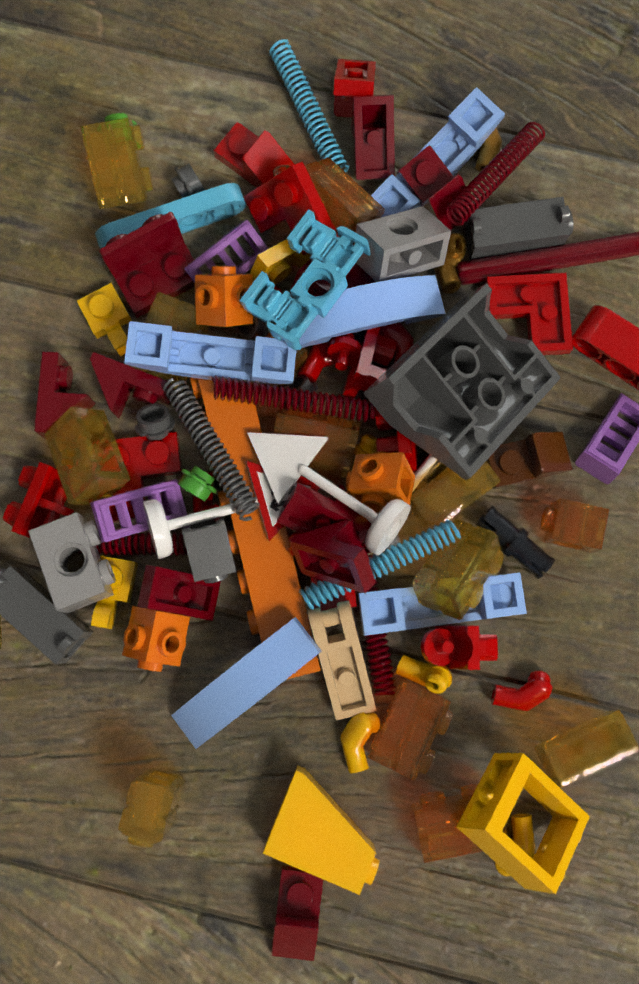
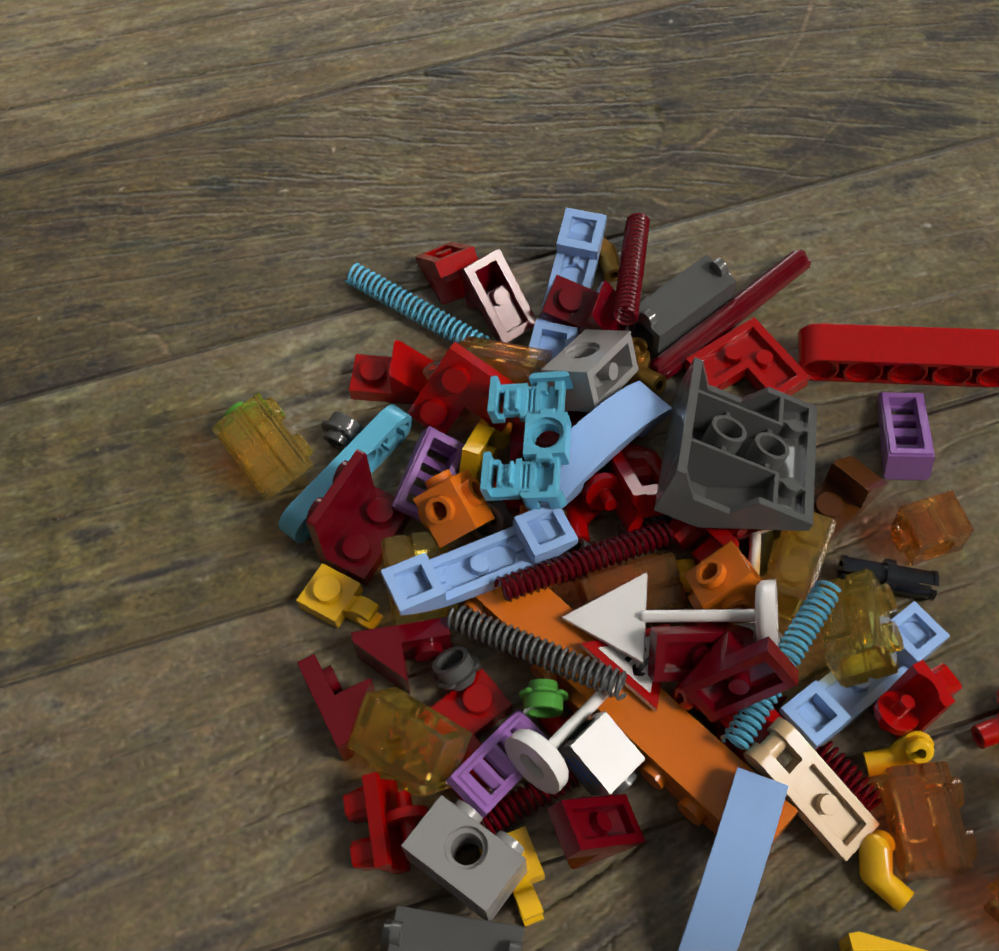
camera: 30 degrees left, 20 degrees down
(155, 638) = (602, 888): orange brick -> none

